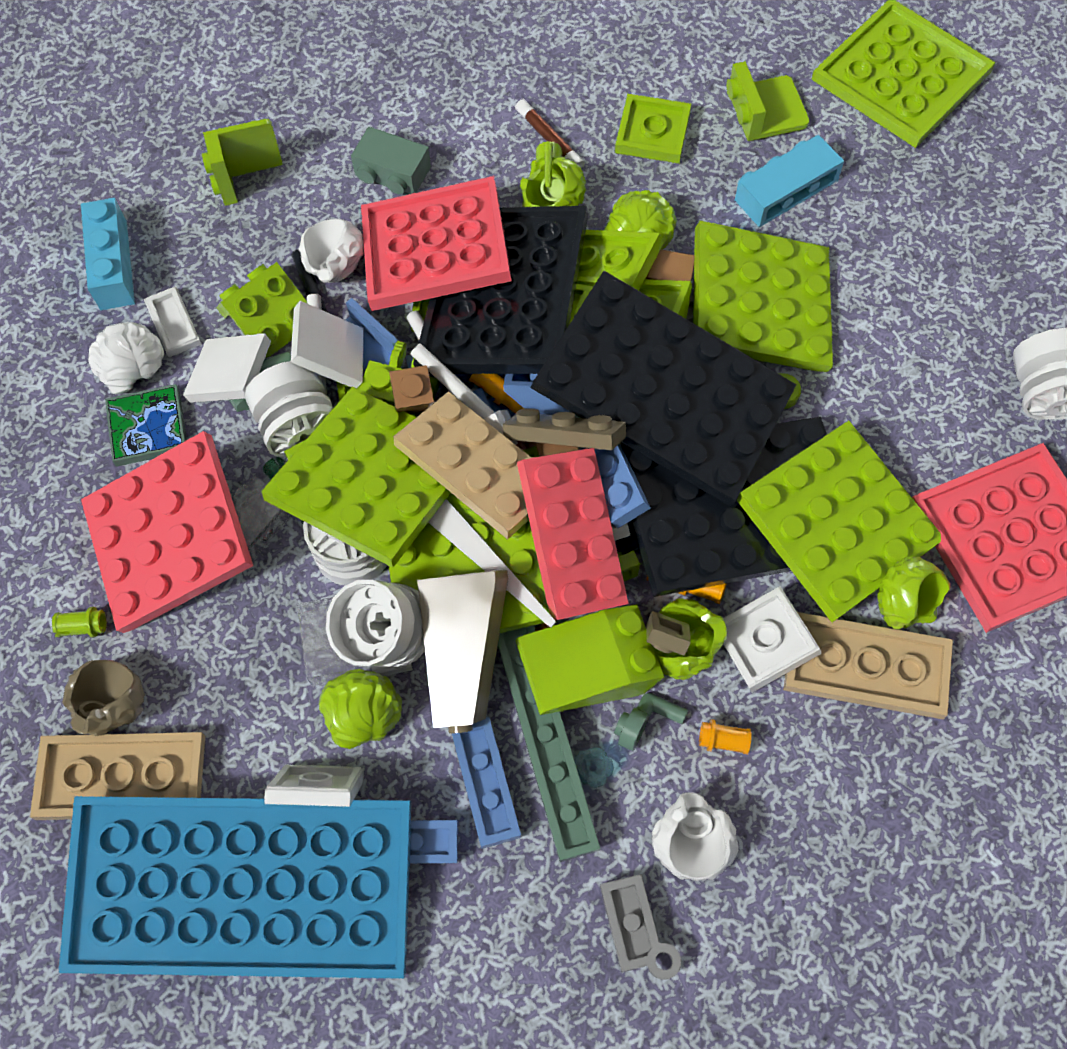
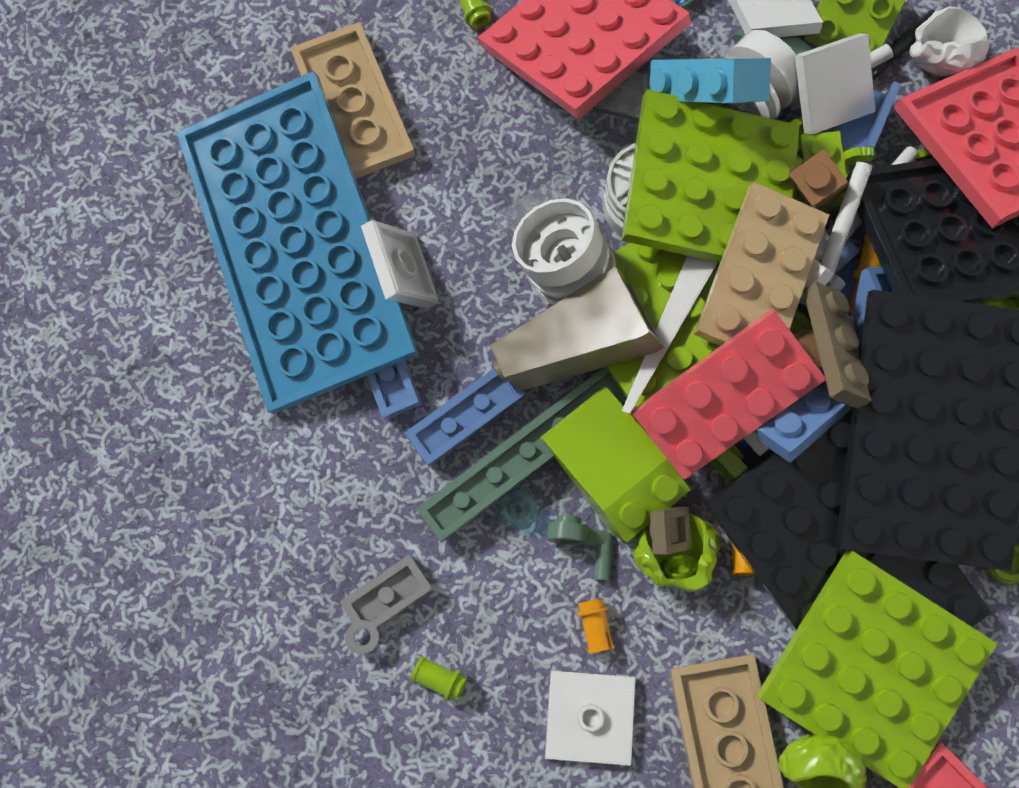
camera: 70 degrees right, 10 degrees up
(102, 697) = (411, 53): dark tan hair -> none
(280, 434) = (713, 79): none -> medium azure brick
(359, 707) = (488, 274): lime hair -> none
(695, 839) = (482, 627): white hair -> none
(727, 901) = (439, 679): none -> lime pin
(768, 639) = (712, 635): white tile -> none
(804, 775) = (590, 718): none -> white plate

